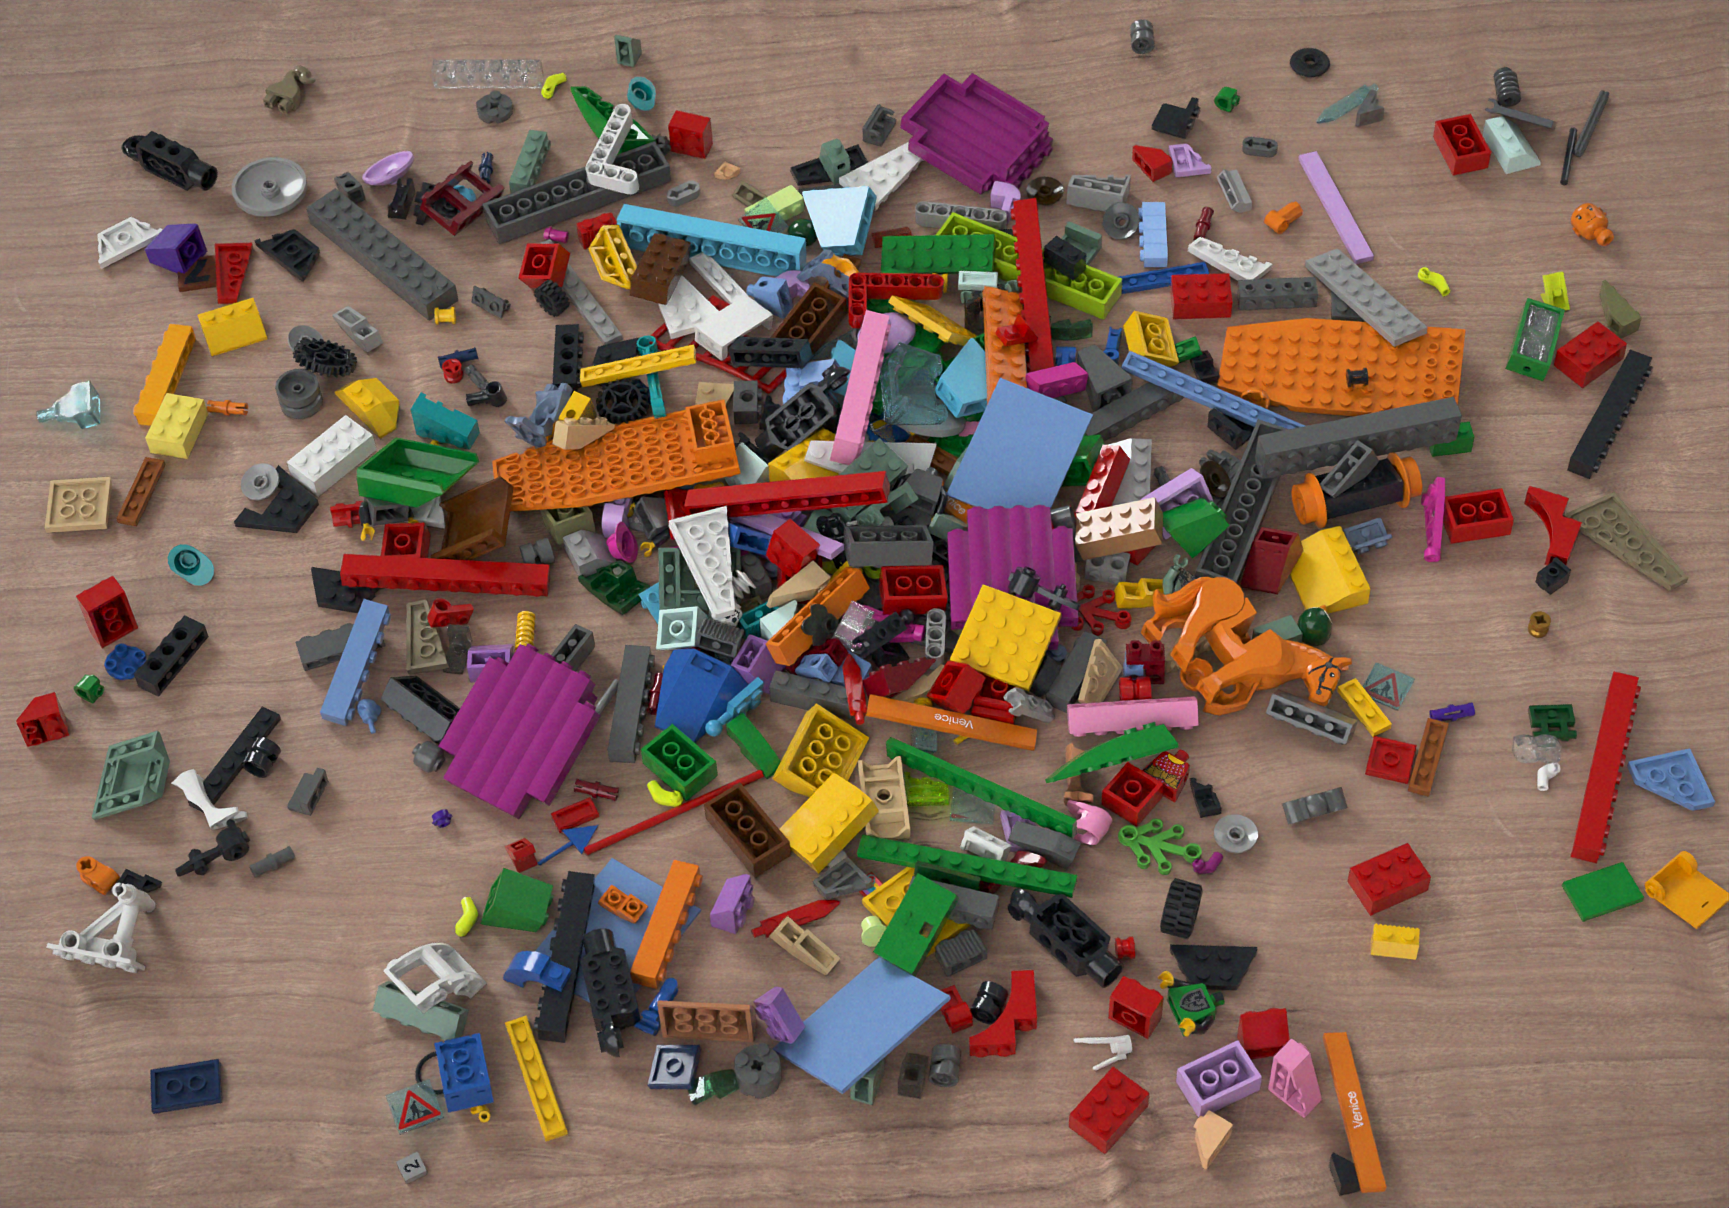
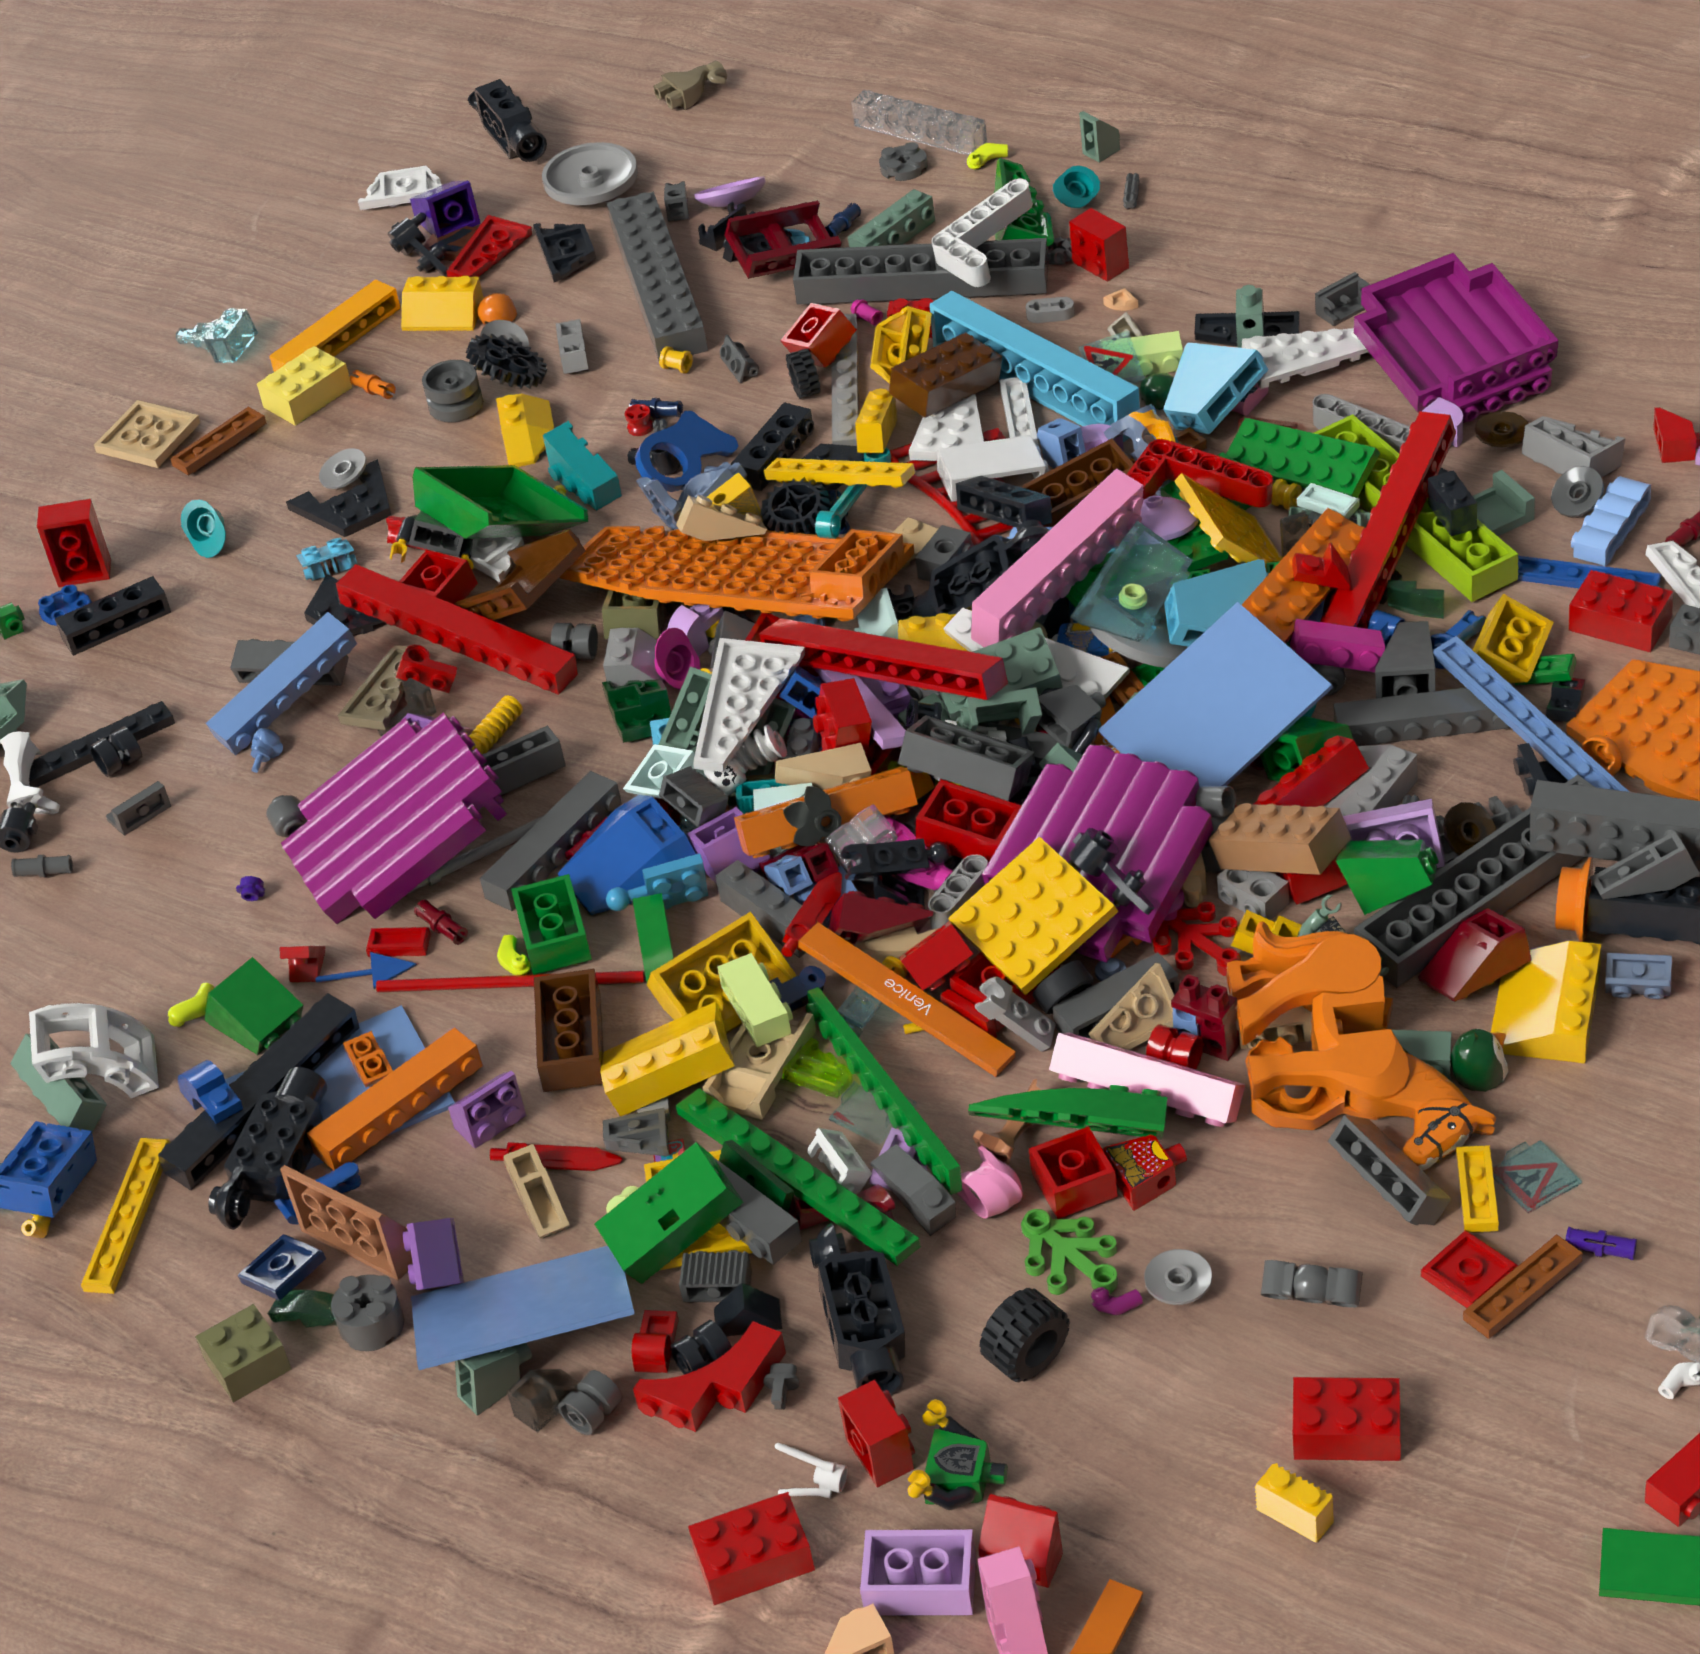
camera: 35 degrees right, 10 degrees down
(165, 280) = (407, 238): none -> black piece
(277, 318) = (496, 307): none -> orange hair
(299, 554) = (314, 556): none -> medium azure hinge
(331, 455) = (457, 448): white brick -> none
(420, 705) = (318, 749): black slope -> none
(511, 376) = (688, 442): none -> blue animal
(631, 318) = (876, 422): none -> yellow brick
(675, 83) = (1131, 190): none -> dark grey axle
(696, 1133) = (243, 1352): none -> olive brick
(862, 762) = (755, 999): none -> yellowish green brick
(875, 741) = (795, 990): none -> dark blue leg
(918, 394) = (1133, 596): none -> yellowish green plate
(994, 966) = (746, 1306): none -> black slope
(1048, 998) = (781, 1380): none -> dark grey piece
(1124, 948) = (925, 1358): red wheel -> none
(1205, 799) = (1174, 1220): black slope -> none
(1214, 965) = (1030, 1431): black wing -> none

